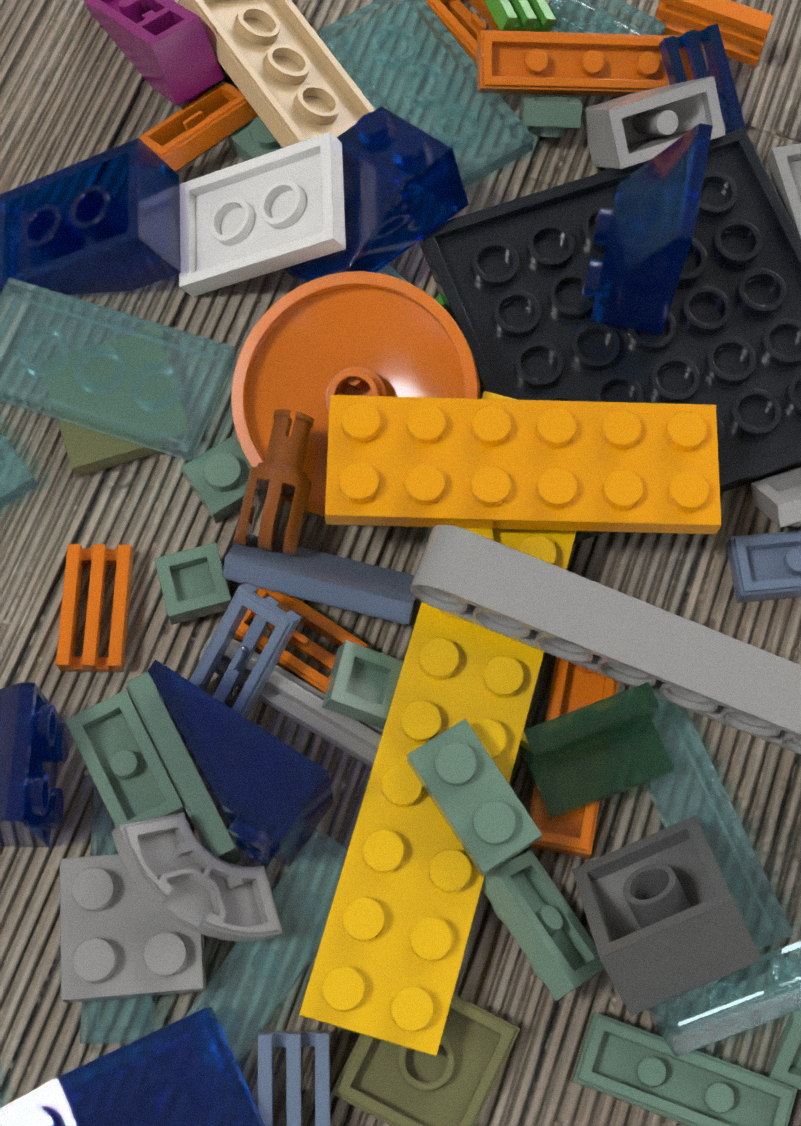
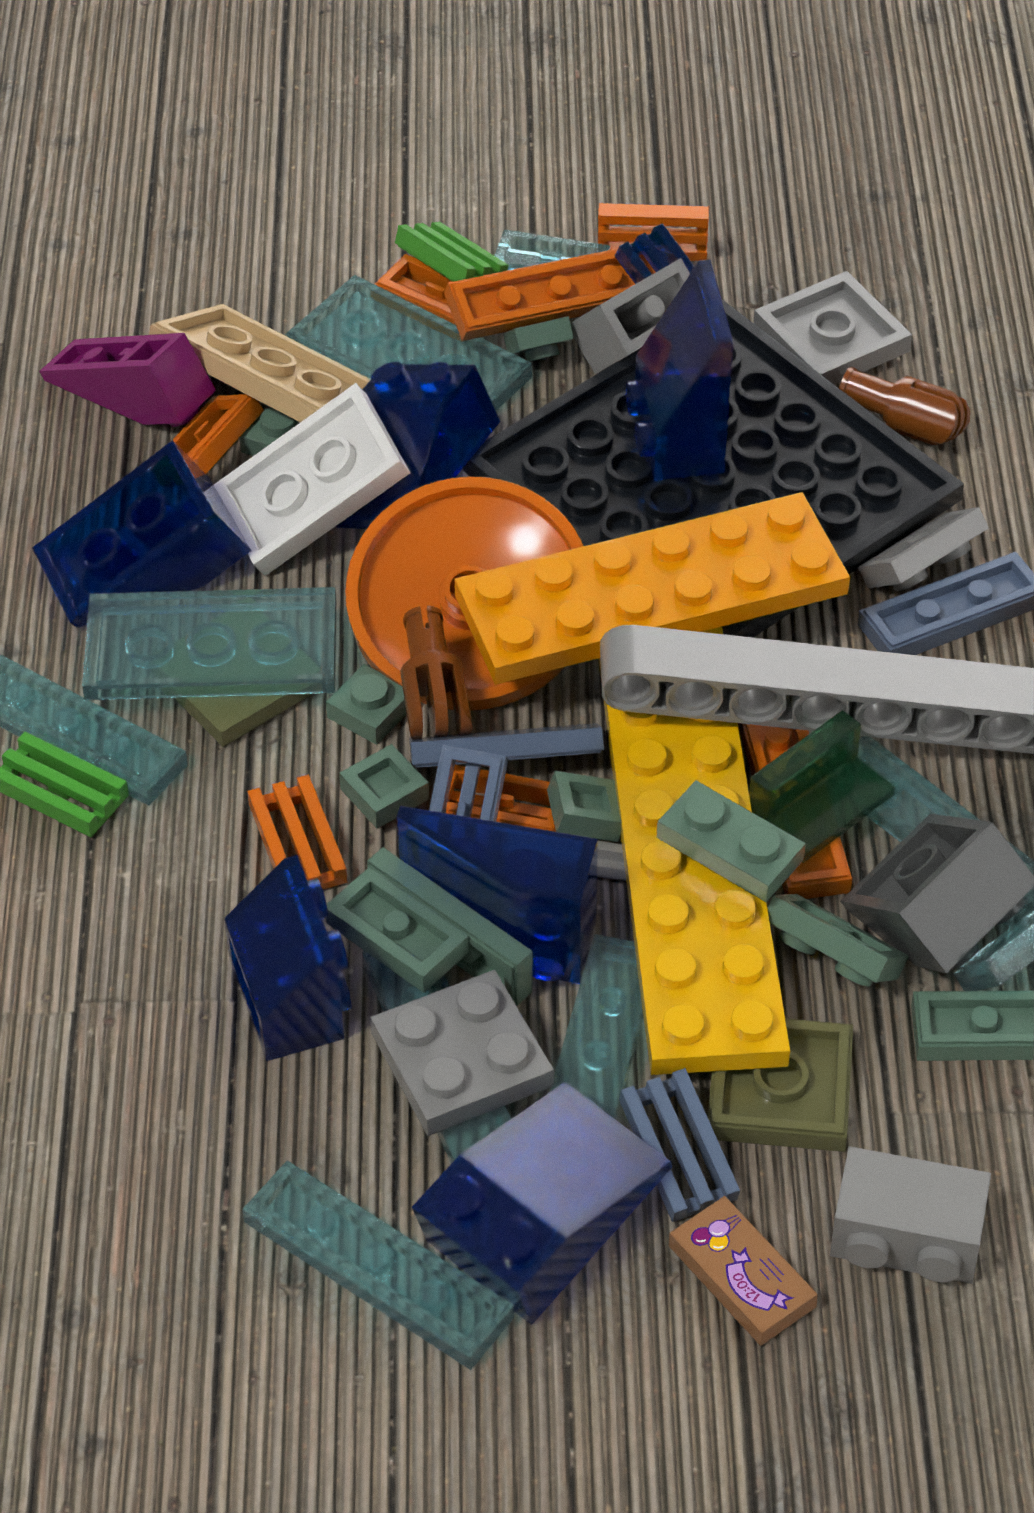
camera: 20 degrees left, 20 degrees down
(194, 883) = (509, 986): light grey tile -> none

